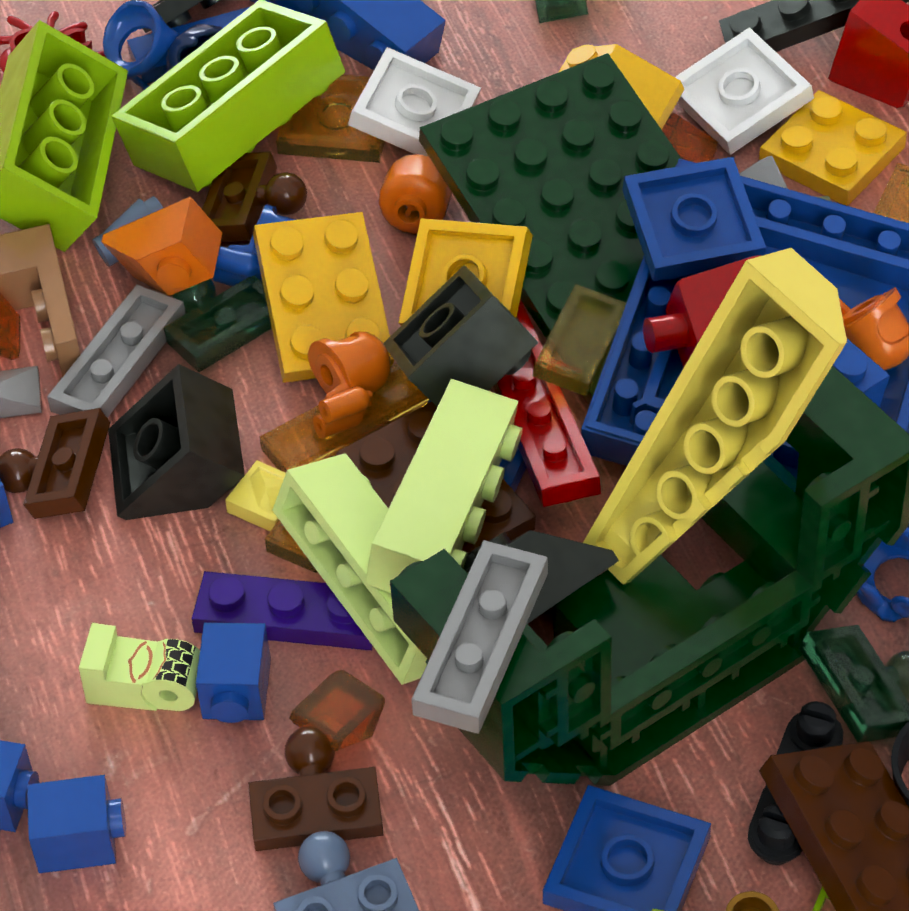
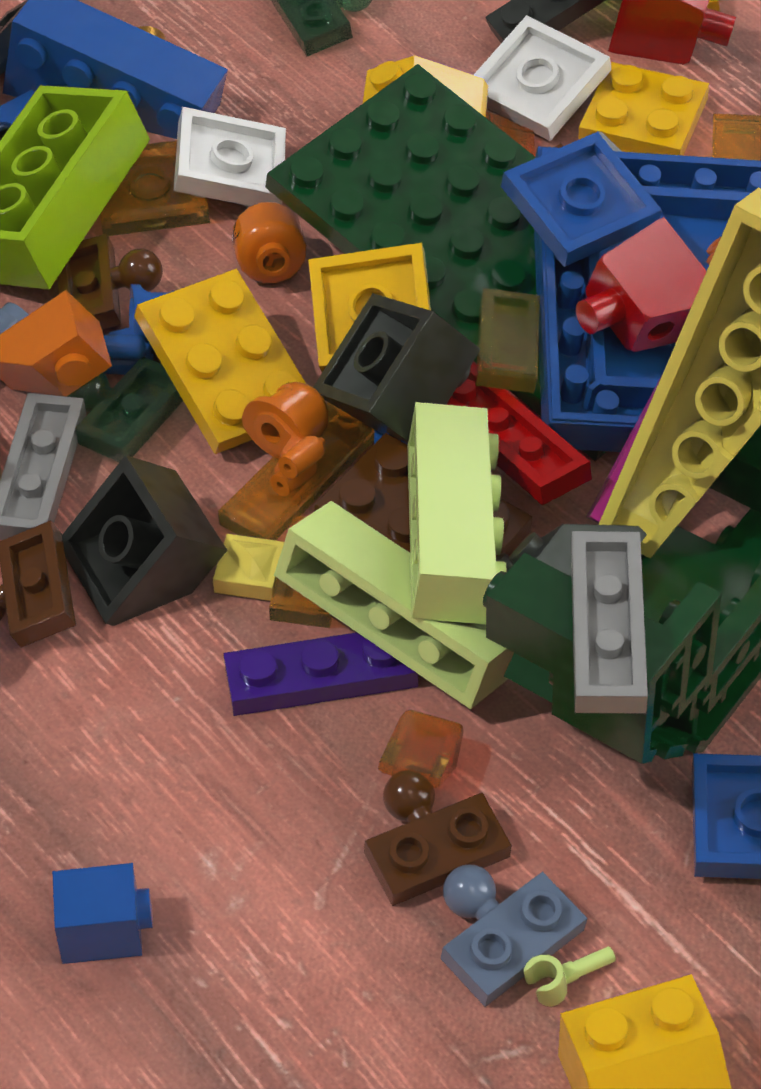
camera: 20 degrees left, 0 degrees up
(74, 823) = (208, 927): blue brick -> none
(138, 671) = (206, 765): yellowish green leg -> none
(233, 671) = (301, 740): blue brick -> none

